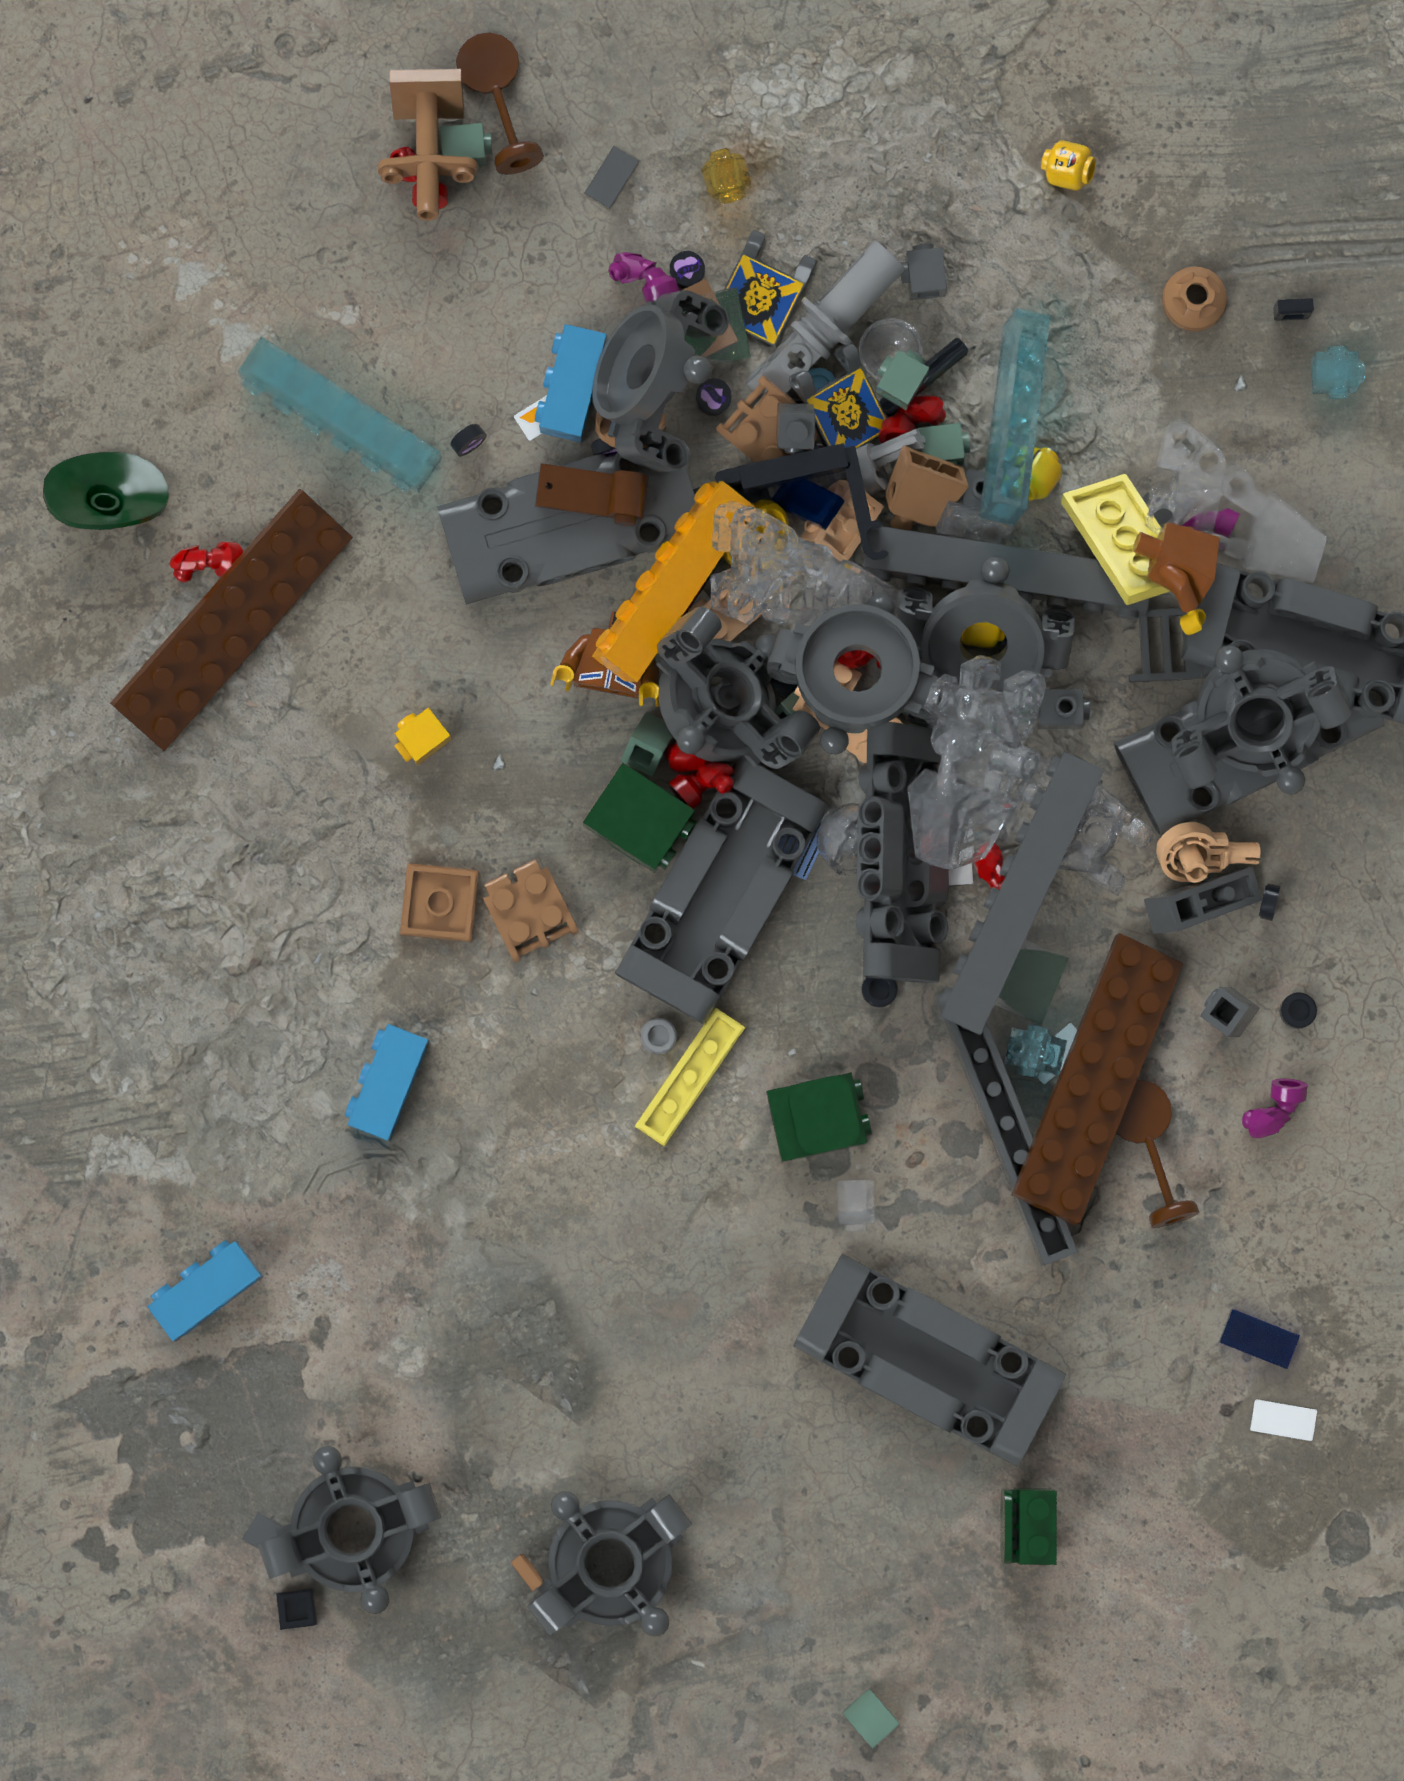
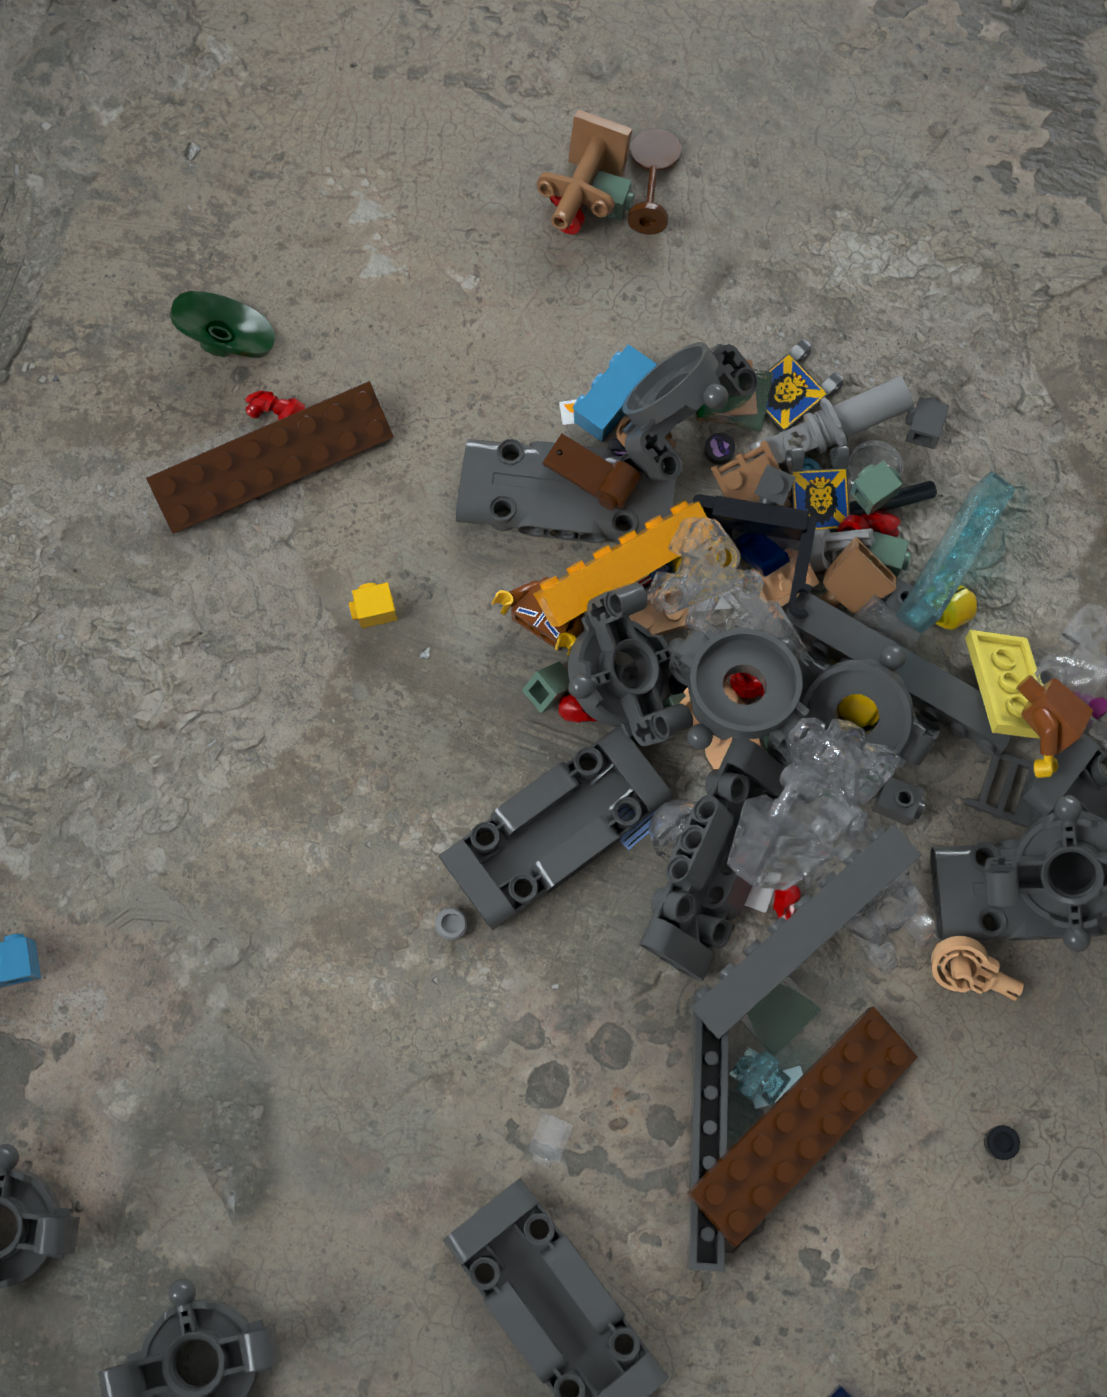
camera: 30 degrees right, 10 degrees down
(339, 415) = (427, 345): clear light blue brick -> none
(386, 1082) = (213, 864): dark azure brick -> none
(439, 902) = (326, 740): medium nougat tile -> none
(468, 439) = (515, 401): black tile -> none
(527, 908) = (393, 775): medium nougat plate -> none
(527, 1571) = (125, 1336): medium nougat tile -> none
(611, 177) = (712, 263): dark grey sticker -> none
(632, 267) = (699, 329): magenta arm -> none
(640, 819) = (514, 740): dark green brick -> none
(687, 268) = (744, 344): black tile -> none
(690, 1077) = (461, 969): light yellow tile -> none
(712, 774) = (587, 730): red arm -> none
(726, 176) = (800, 292): clear yellow head -> none
(818, 1116) = (551, 1049): dark green brick -> none
(879, 992) = (649, 967): black tile -> none
(1069, 165) = (1074, 388): yellow head -> none
(1143, 1122) = (829, 1180): reddish brown piece -> none
(1202, 900) = (955, 1010): dark grey slope -> none
(1229, 1011) = (942, 1116): dark grey brick -> none
(1269, 902) = (1013, 1037): black tile -> none
(1269, 1121) = (941, 1229): magenta arm -> none

